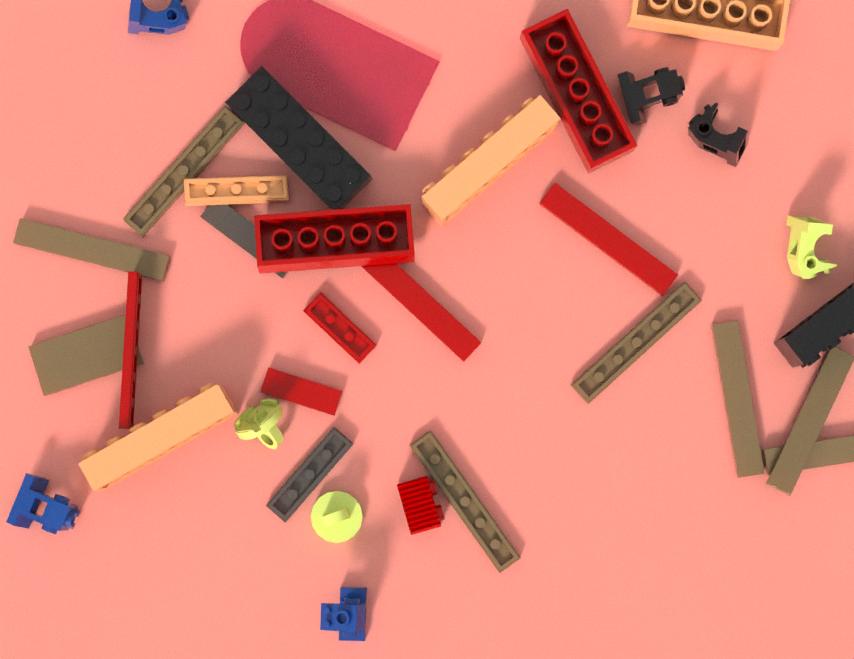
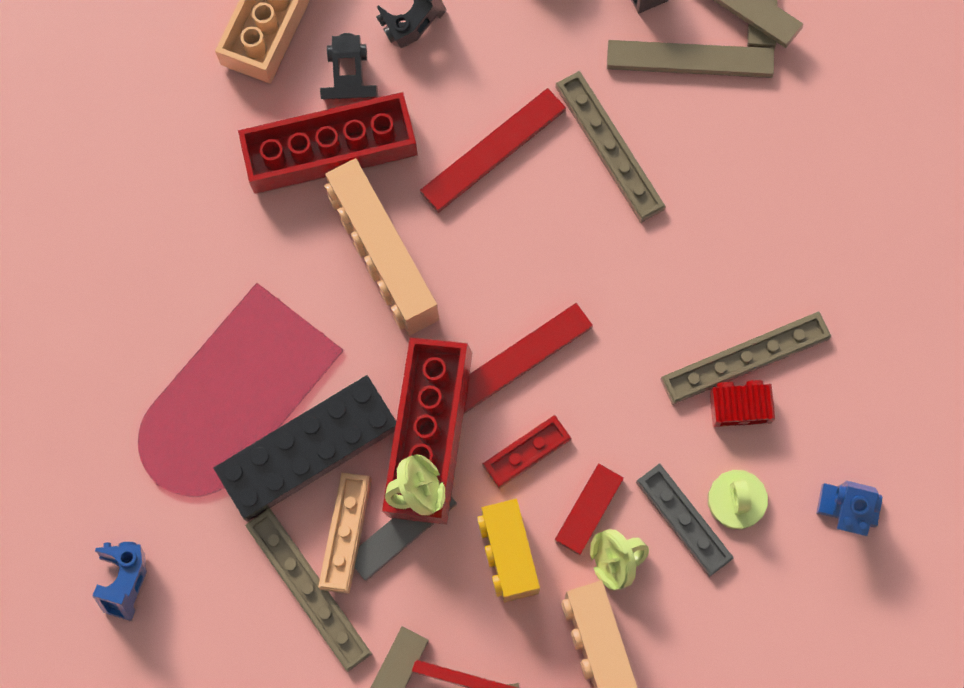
camera: 70 degrees left, 10 degrees down
(245, 330) = (508, 551): none -> yellow brick
(275, 240) = (418, 486): none -> yellowish green tile

